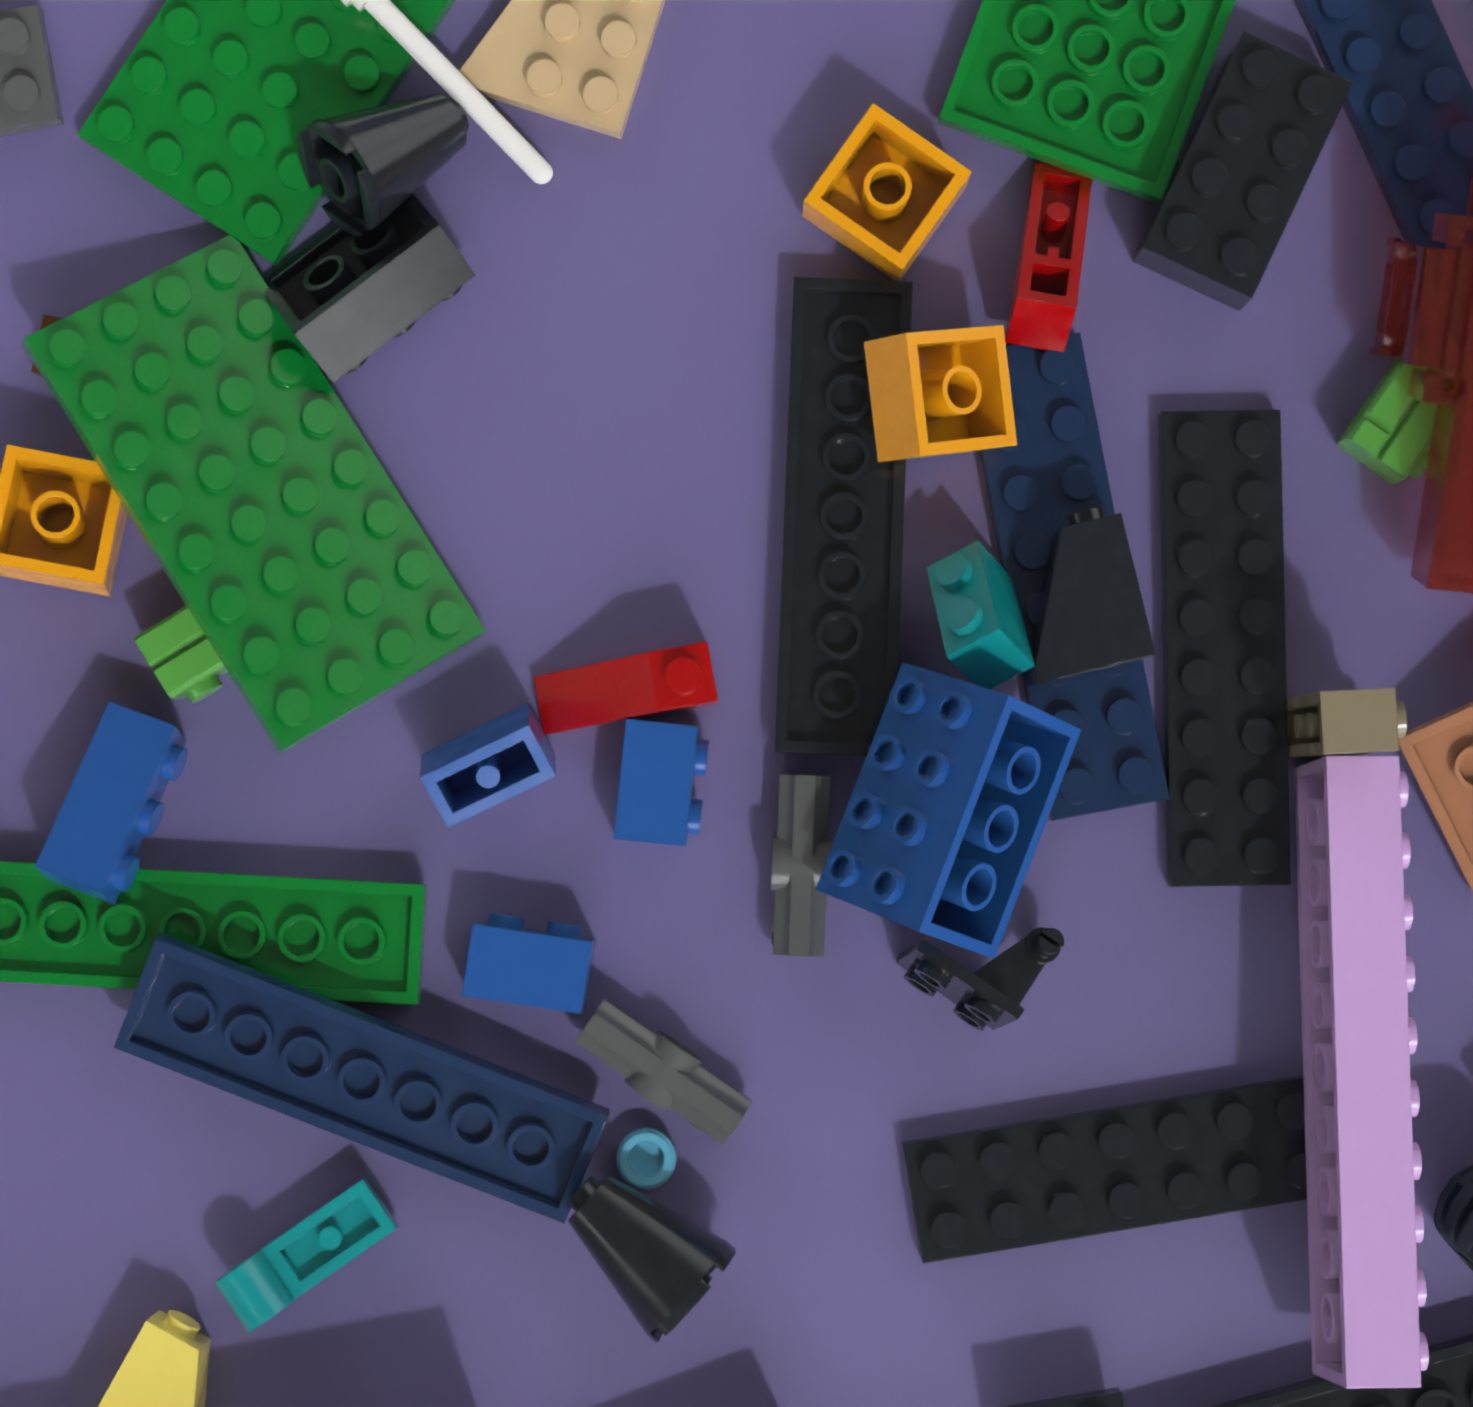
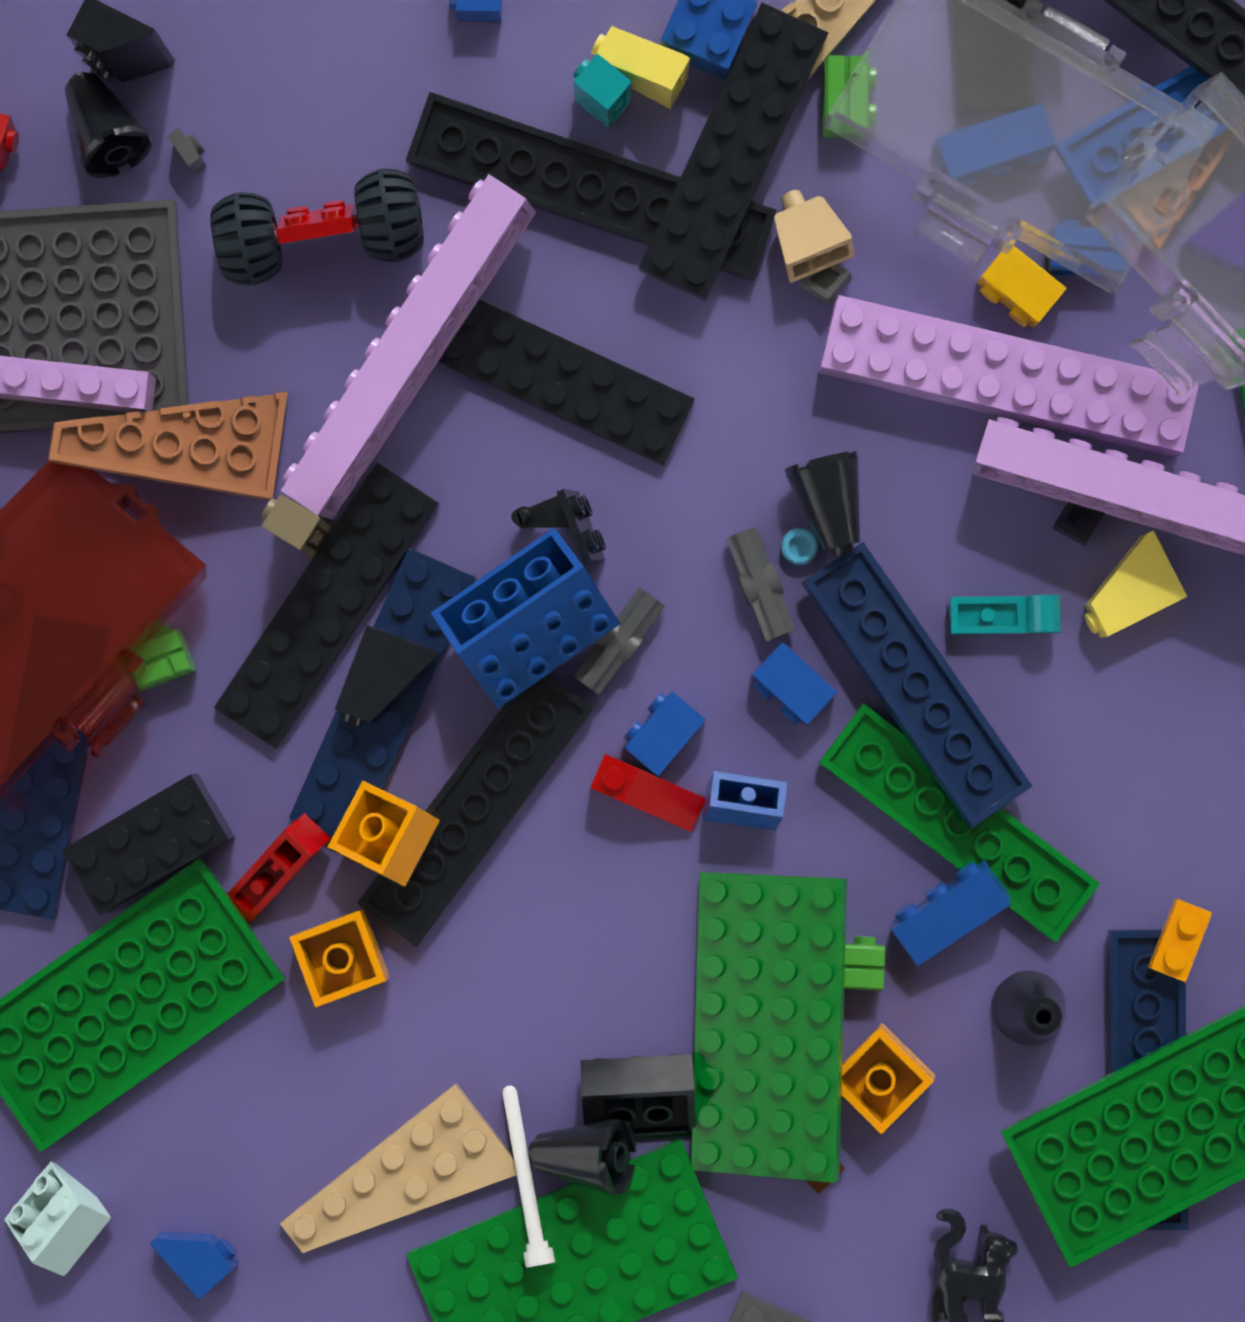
camera: 150 degrees left, 0 degrees up
(980, 616) = (442, 705): teal brick -> none

